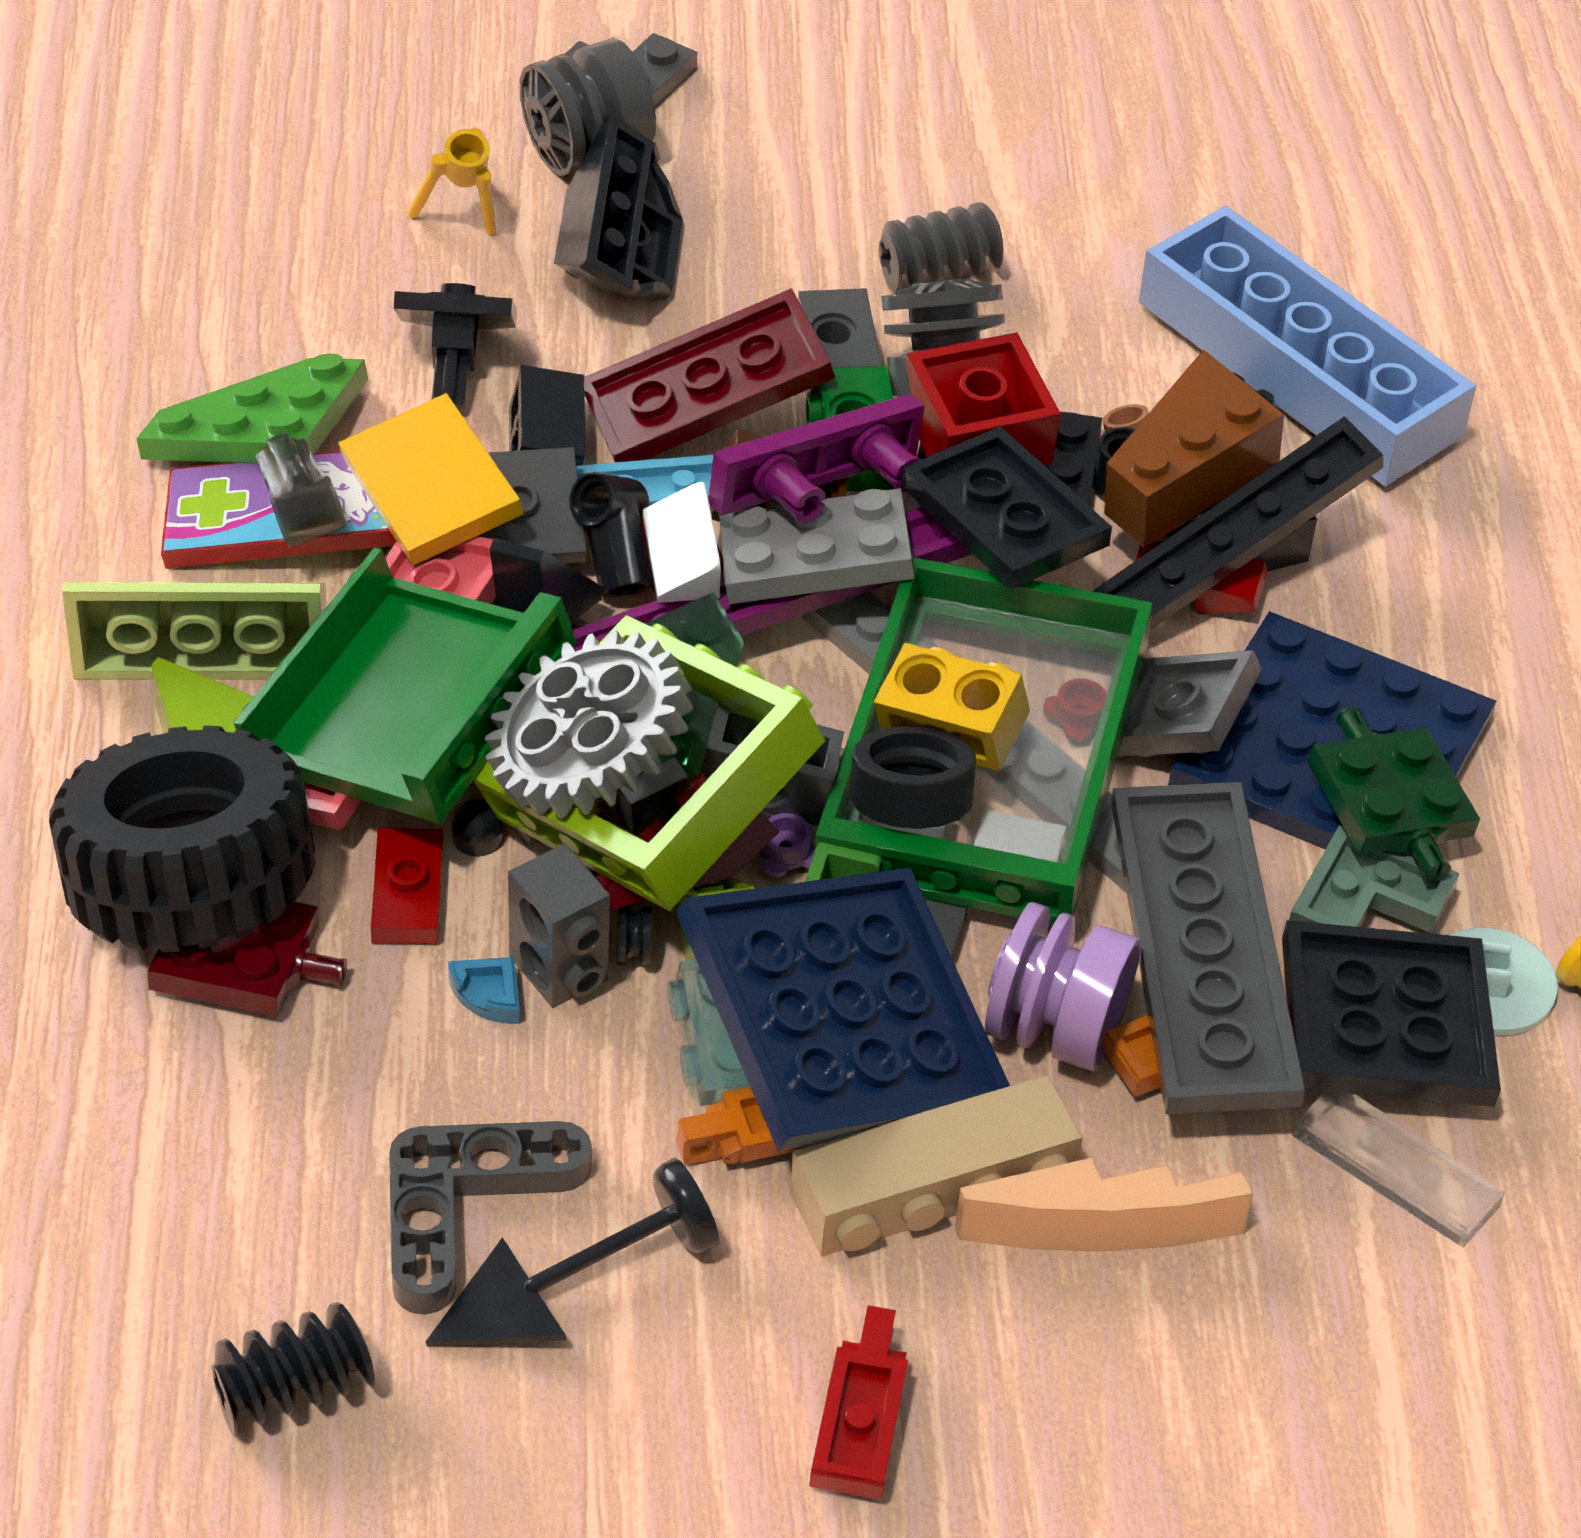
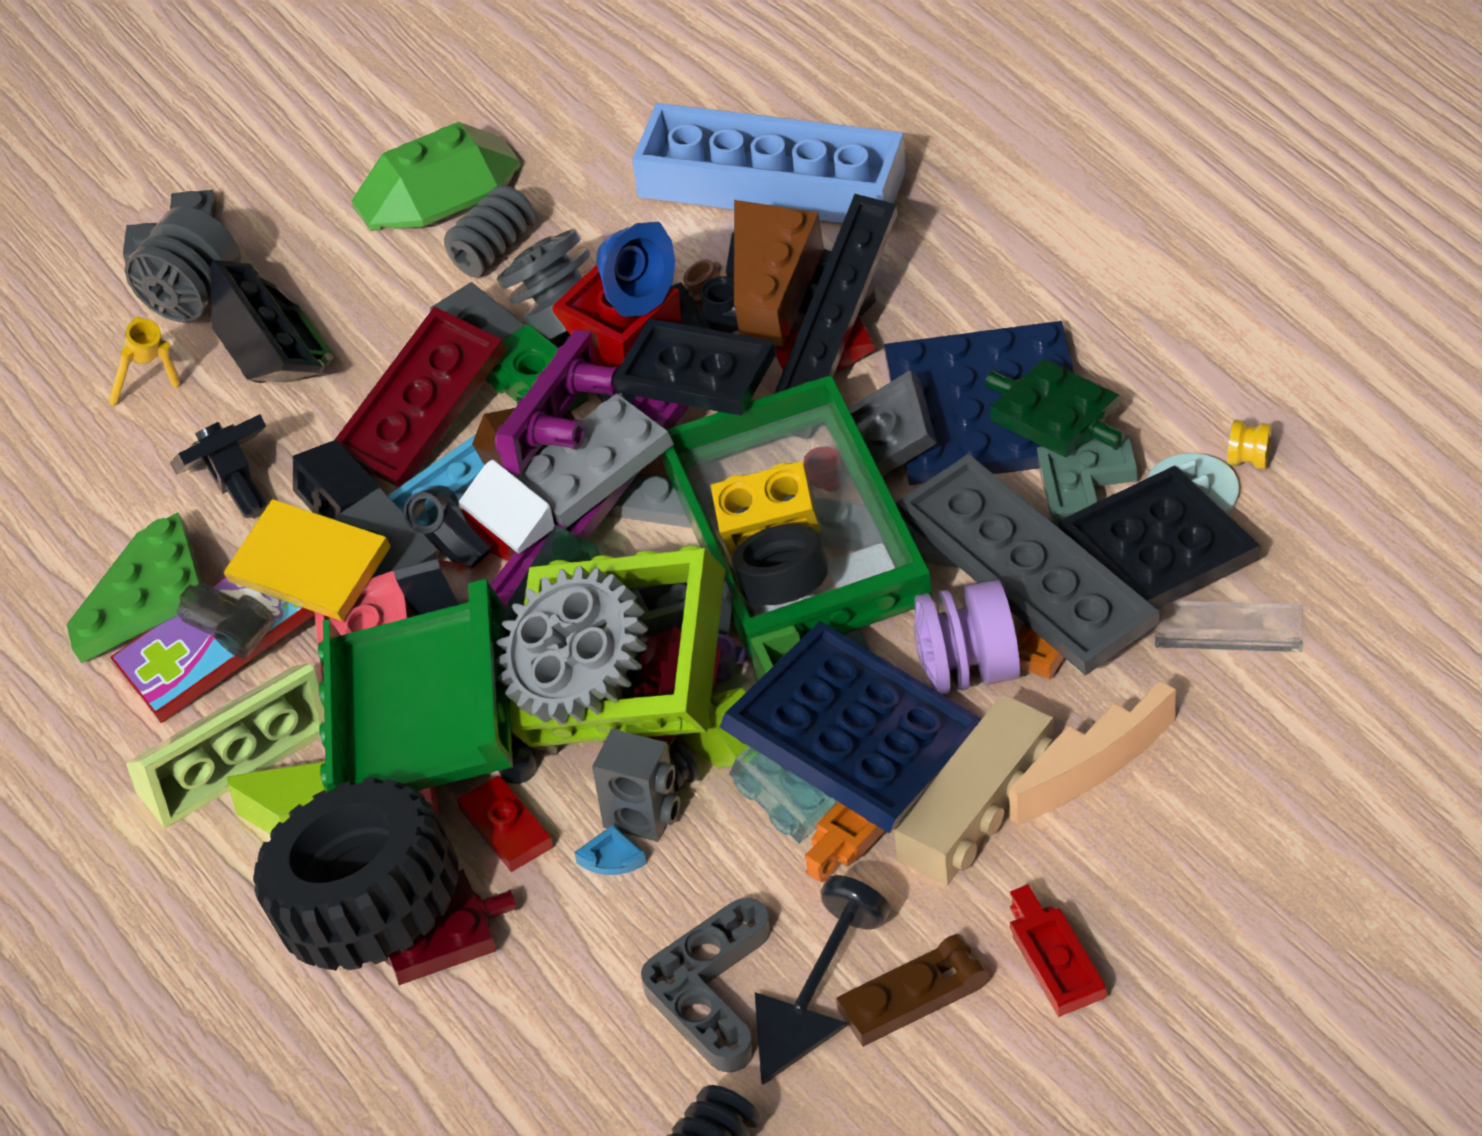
camera: 25 degrees left, 0 degrees up
(674, 1348) = (912, 990): none -> reddish brown plate
(938, 160) = (434, 177): none -> bright green wedge
(1018, 361) = (636, 268): none -> blue piece

